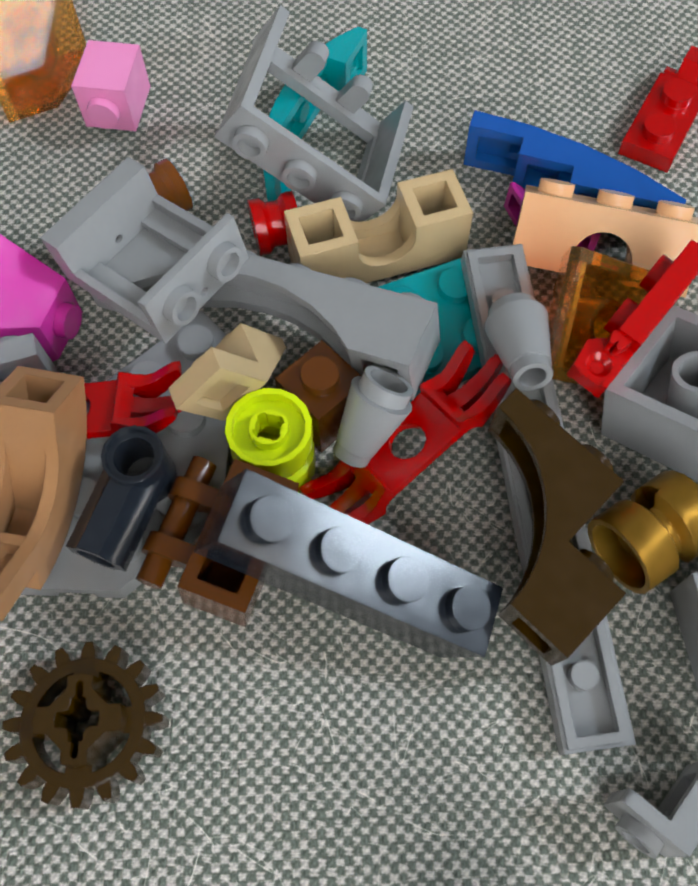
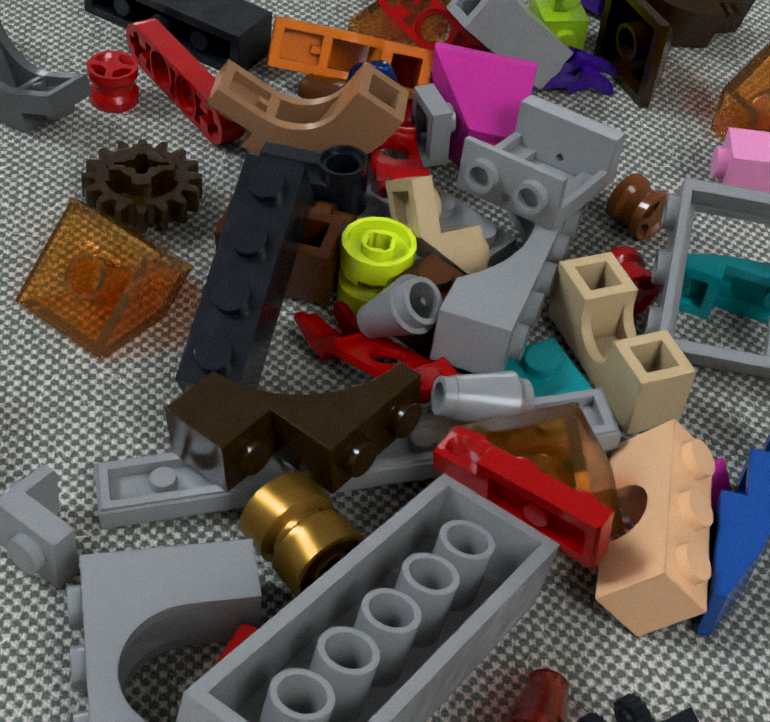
camera: 80 degrees right, 20 degrees down
(277, 765) = (102, 280): none -> clear orange slope

